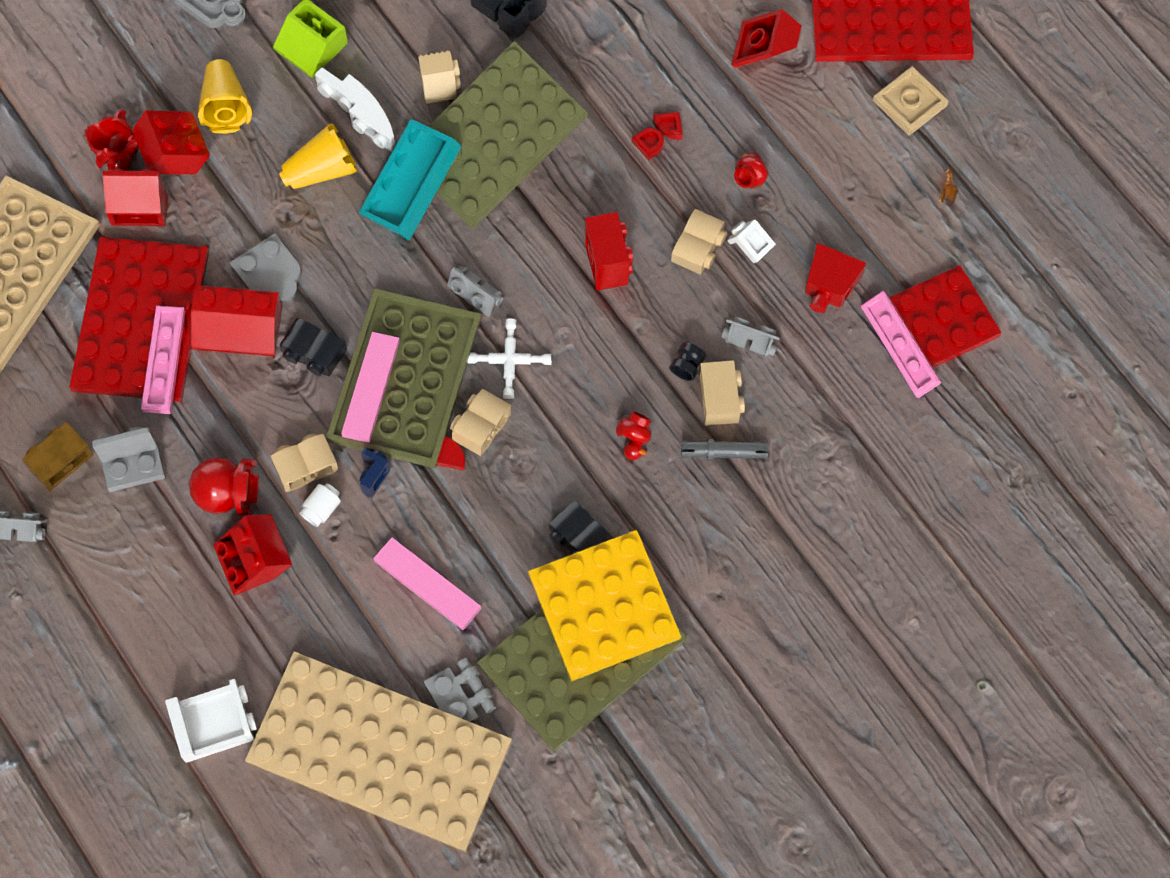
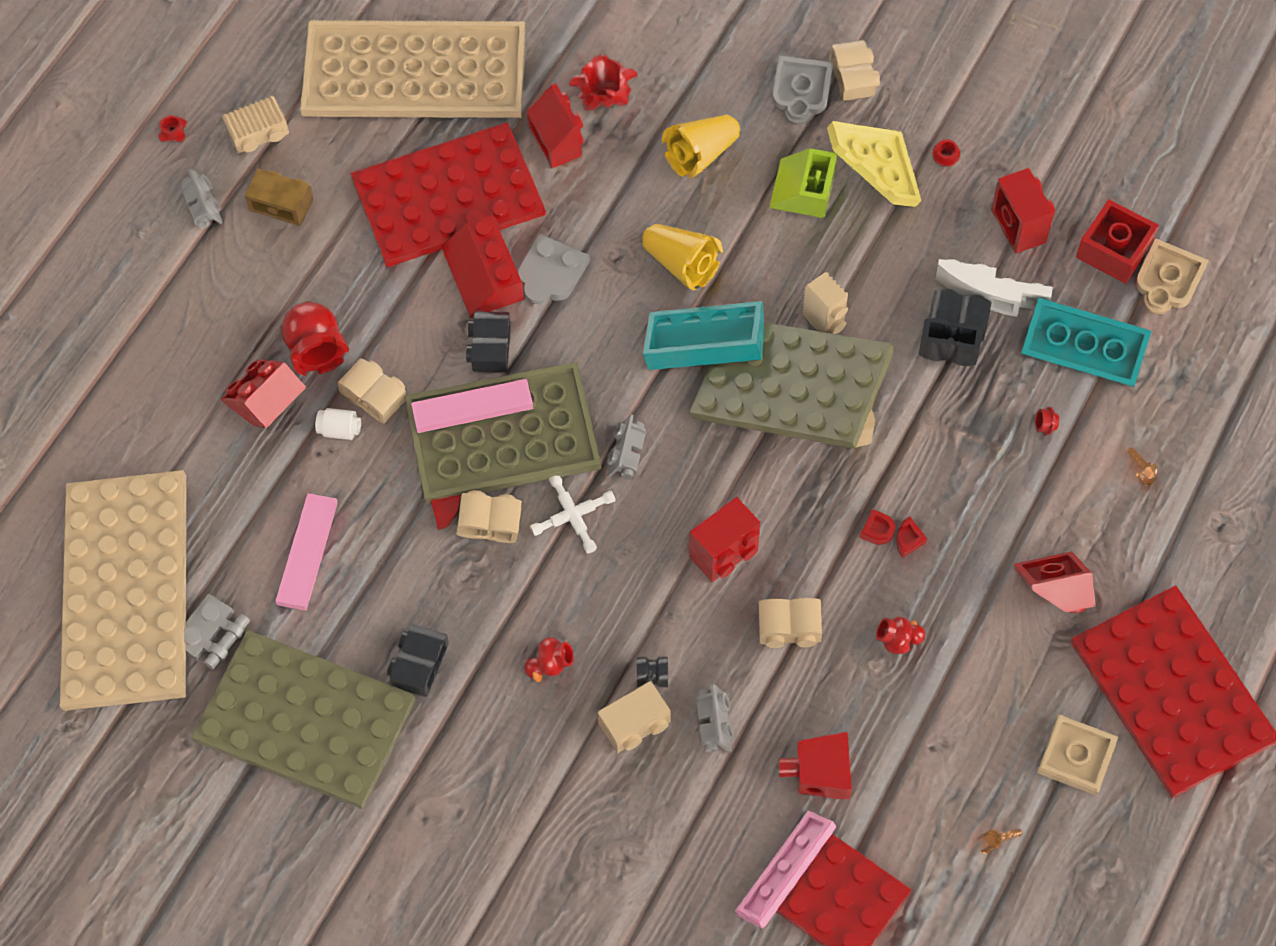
camera: 65 degrees right, 5 degrees down
(129, 458) = (303, 252): light grey bracket -> none
(163, 360) = (410, 228): bright pink tile -> none
(170, 142) = (625, 124): red brick -> none
(211, 721) = (89, 437): white panel -> none
(364, 109) = (760, 261): white slope -> none
(373, 476) = (390, 454): dark blue bracket -> none
(604, 605) = (350, 710): yellow plate -> none
(723, 449) = (571, 738): dark grey pin -> none
(751, 239) = (820, 671): white bracket -> none

